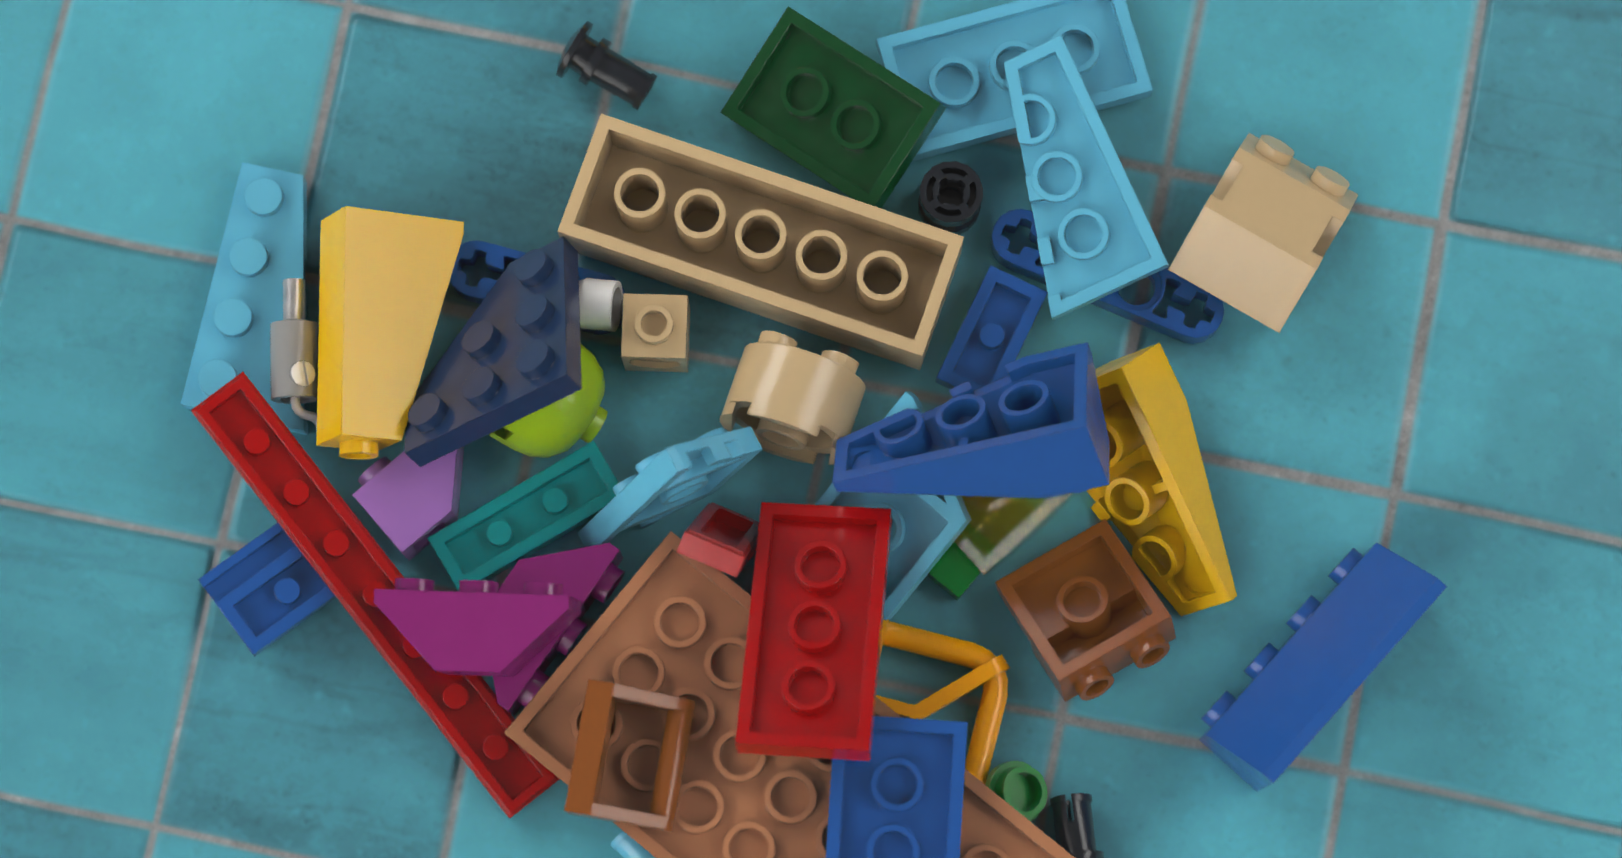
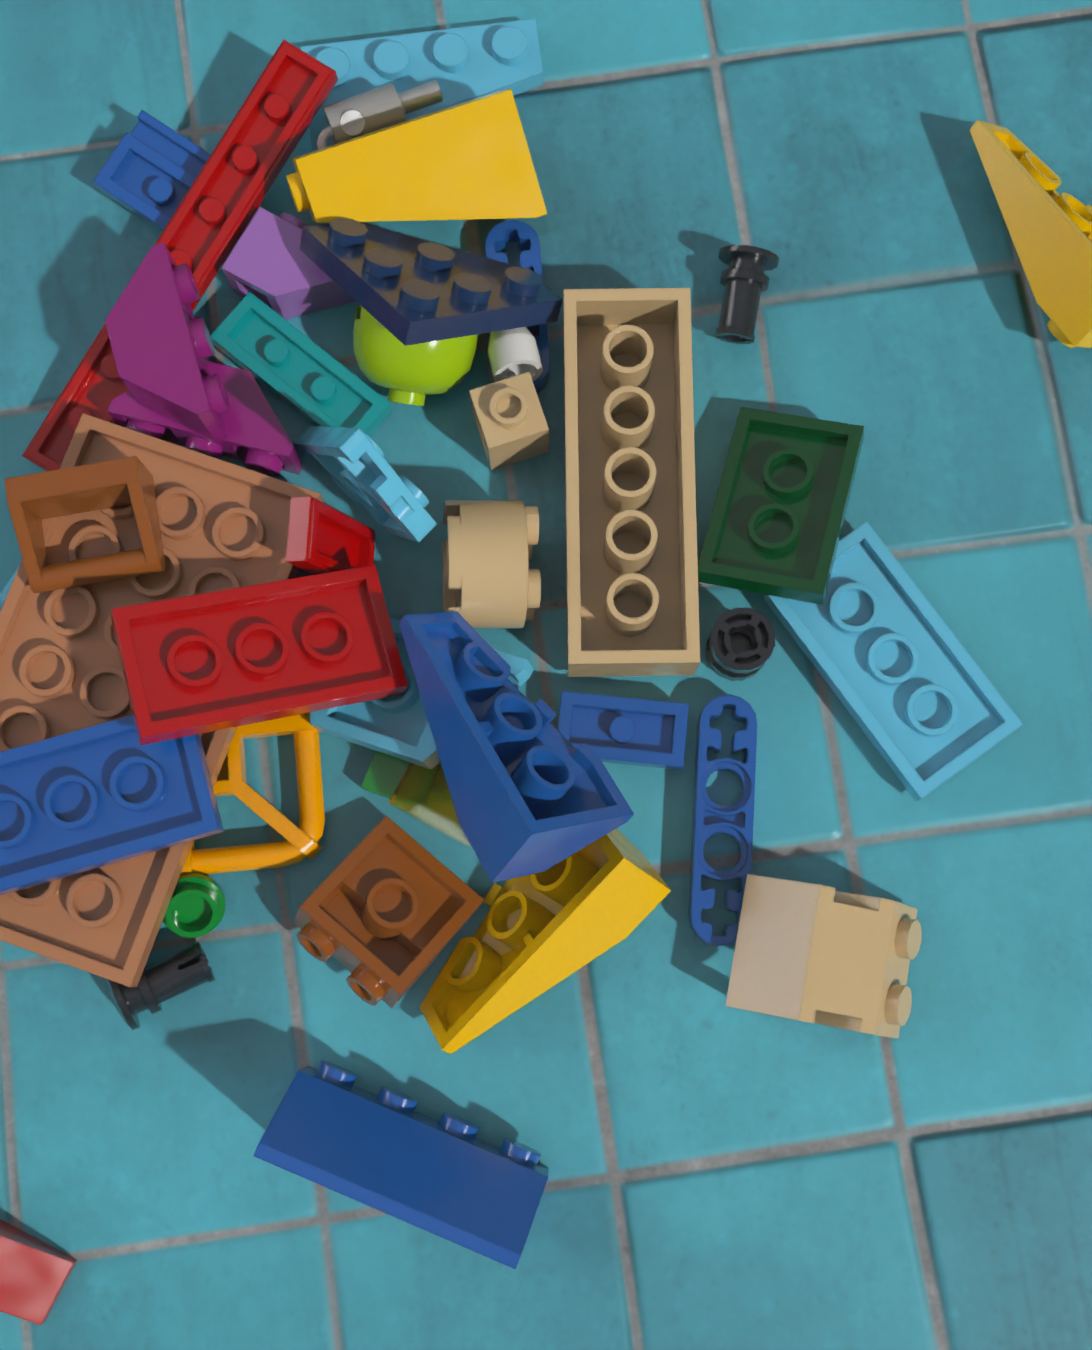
camera: 70 degrees right, 0 degrees up
(1080, 197) = (783, 768): medium azure wing -> none

